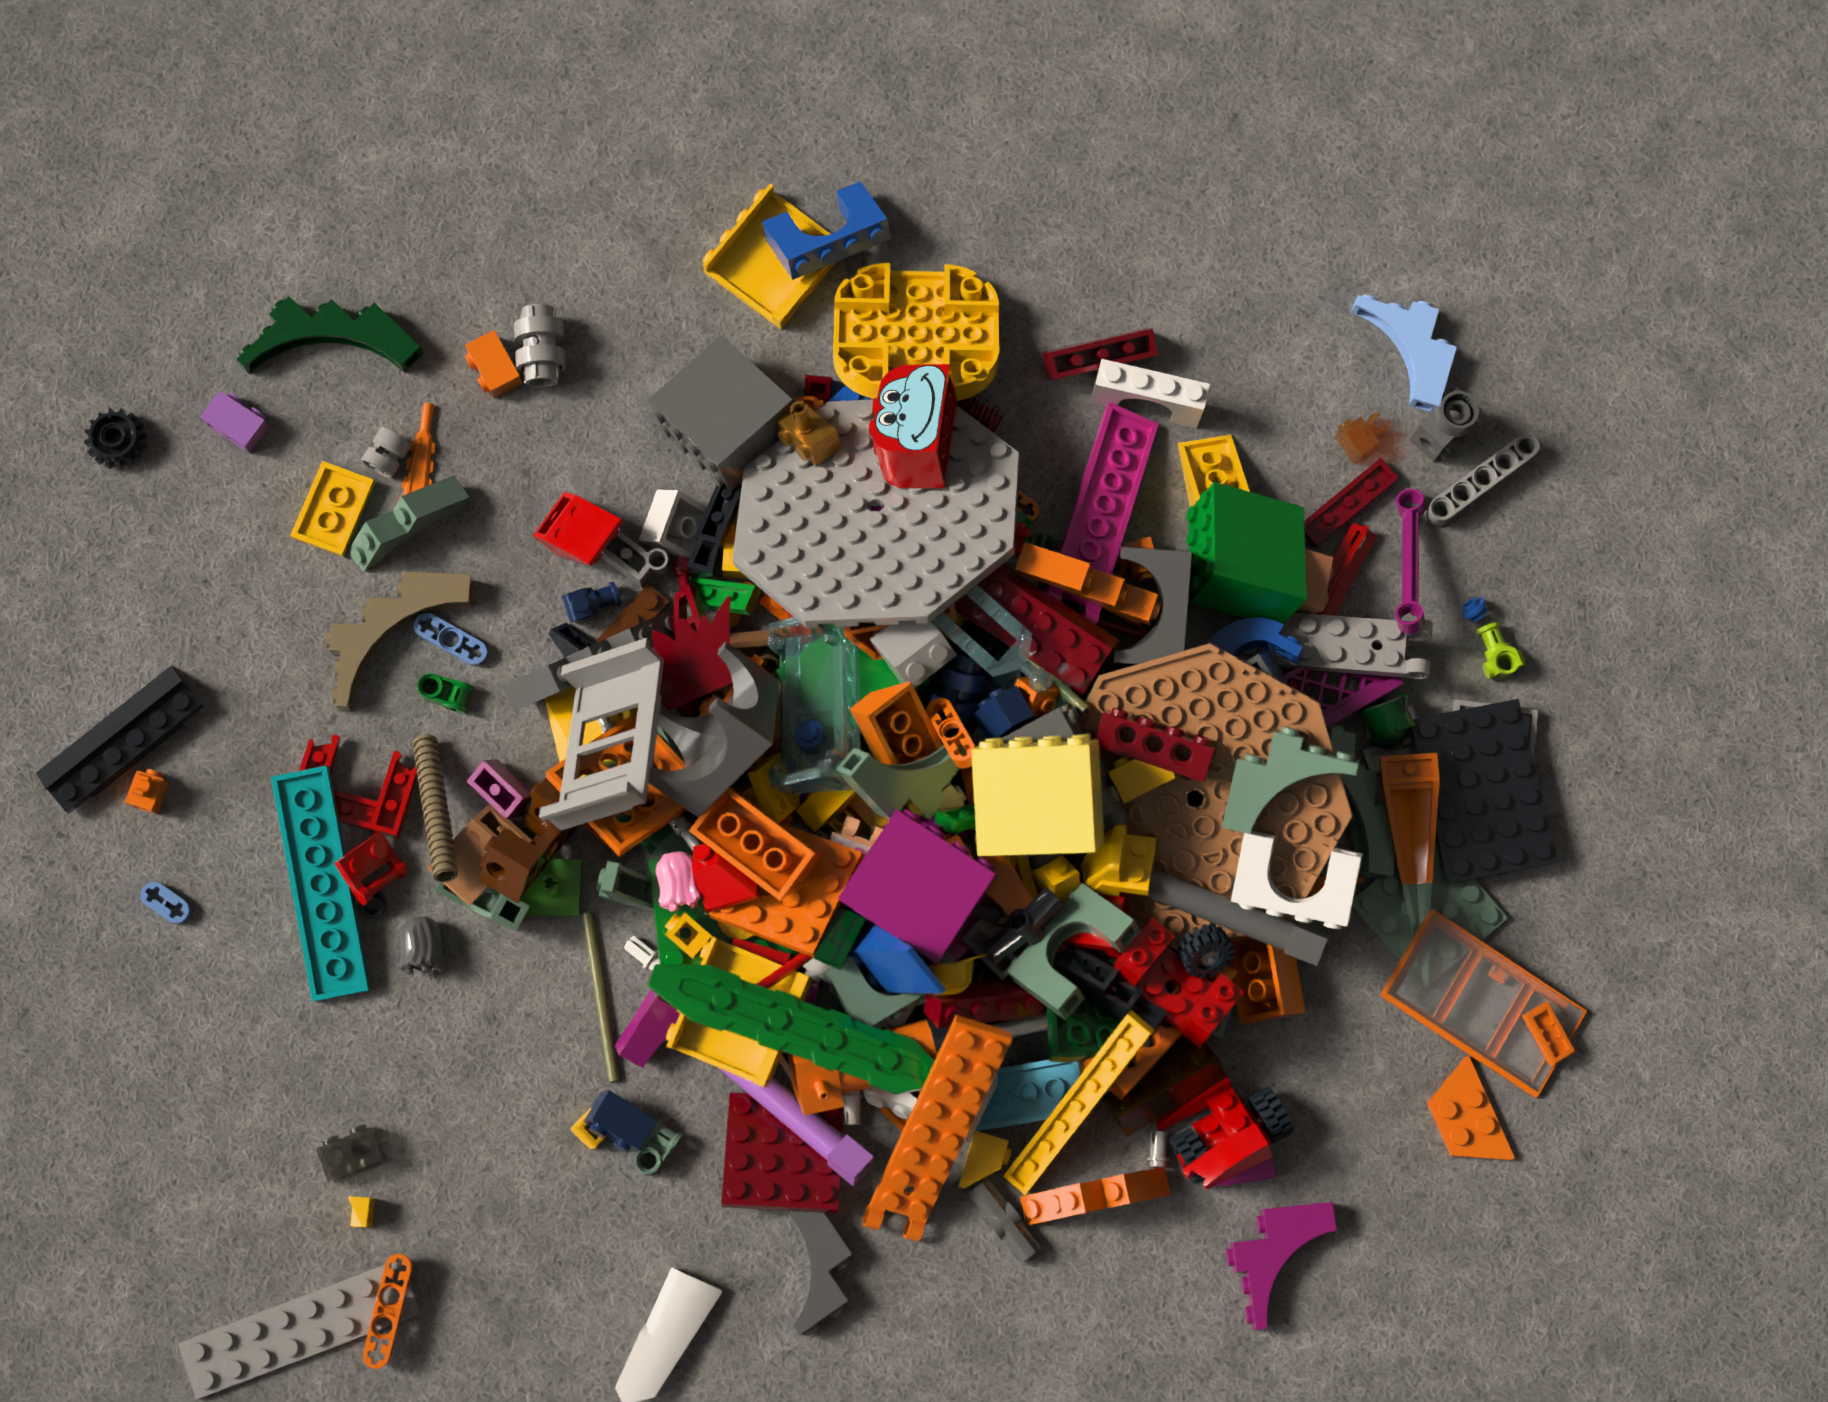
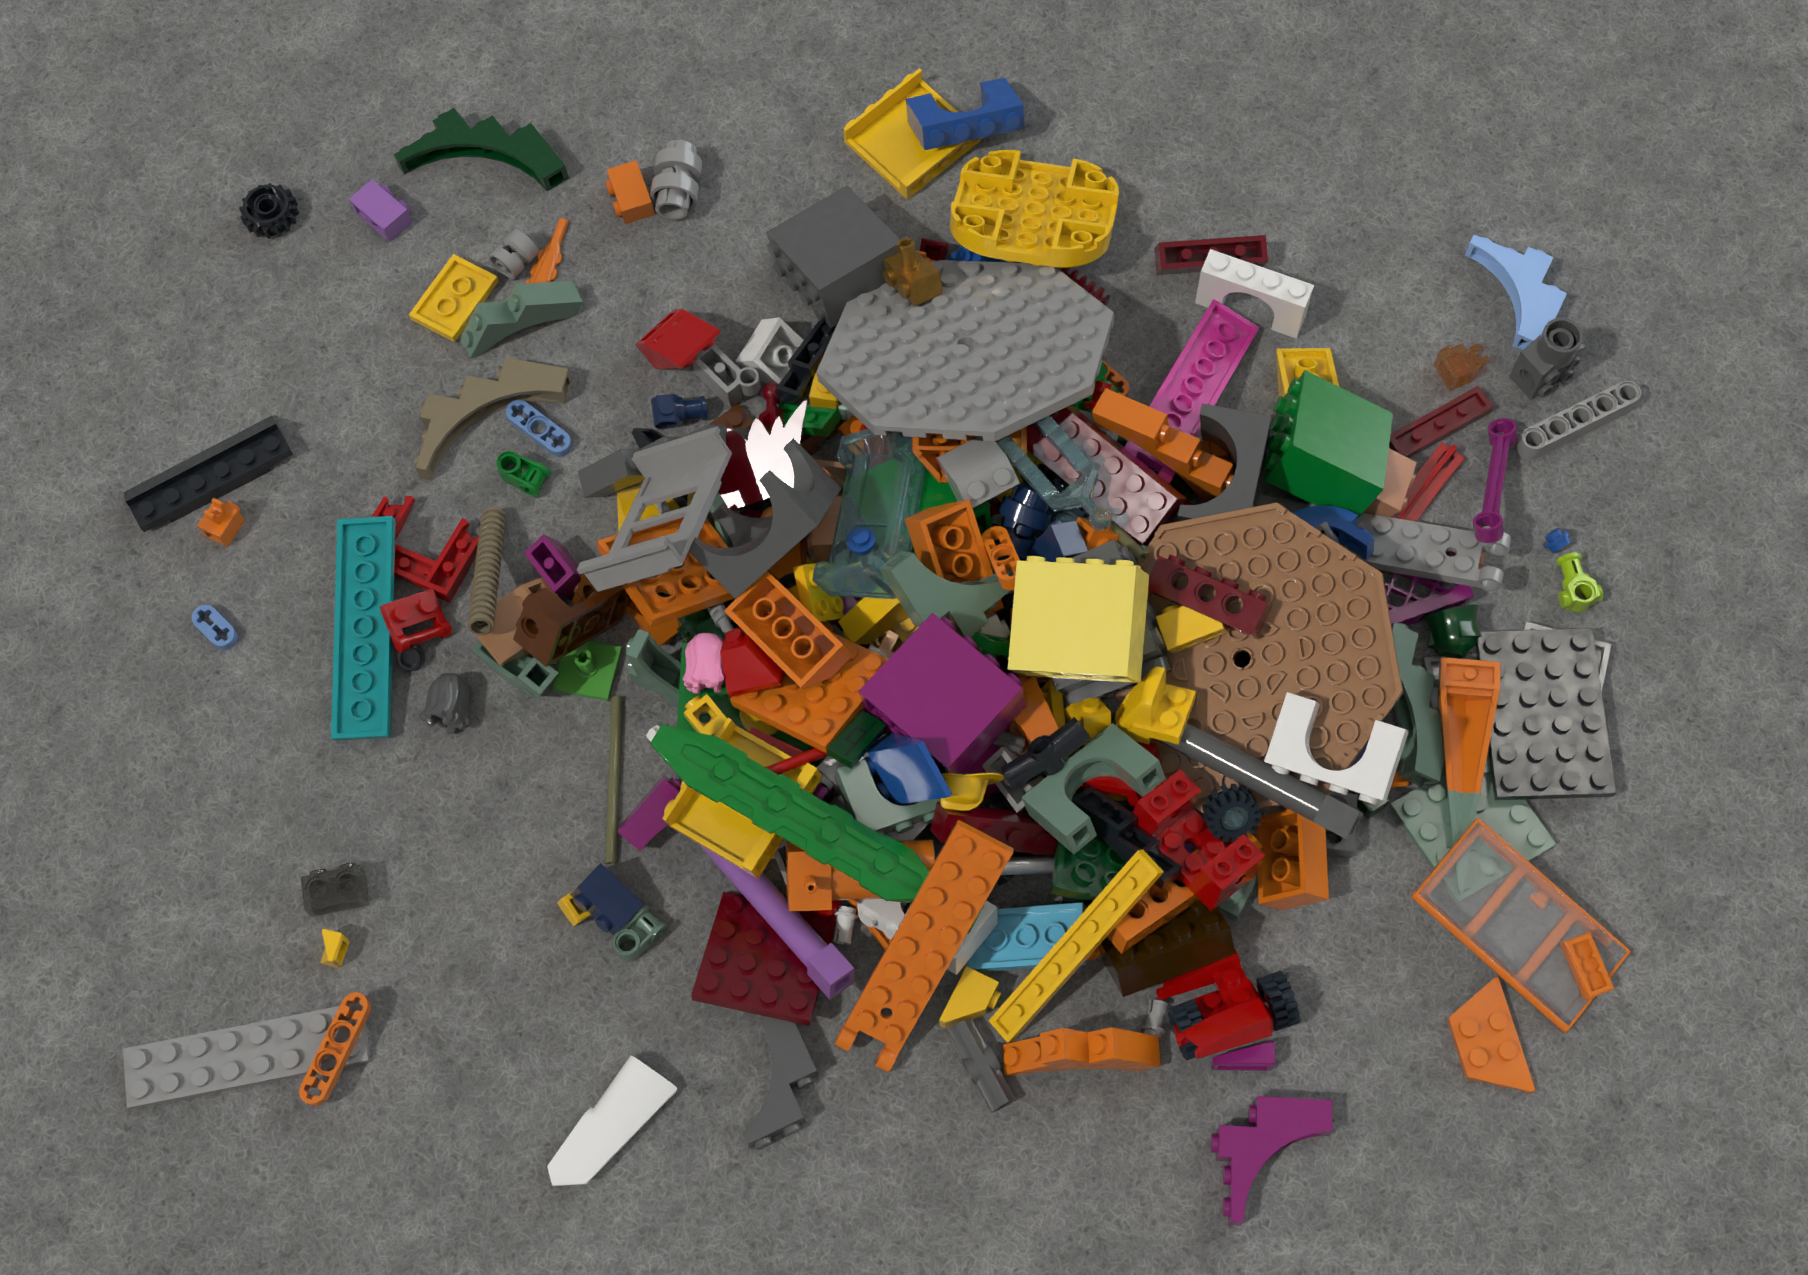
camera: 20 degrees right, 10 degrees down
(914, 425) = (1016, 273): brick -> none
(1287, 762) = (1341, 626): sand green arch -> none

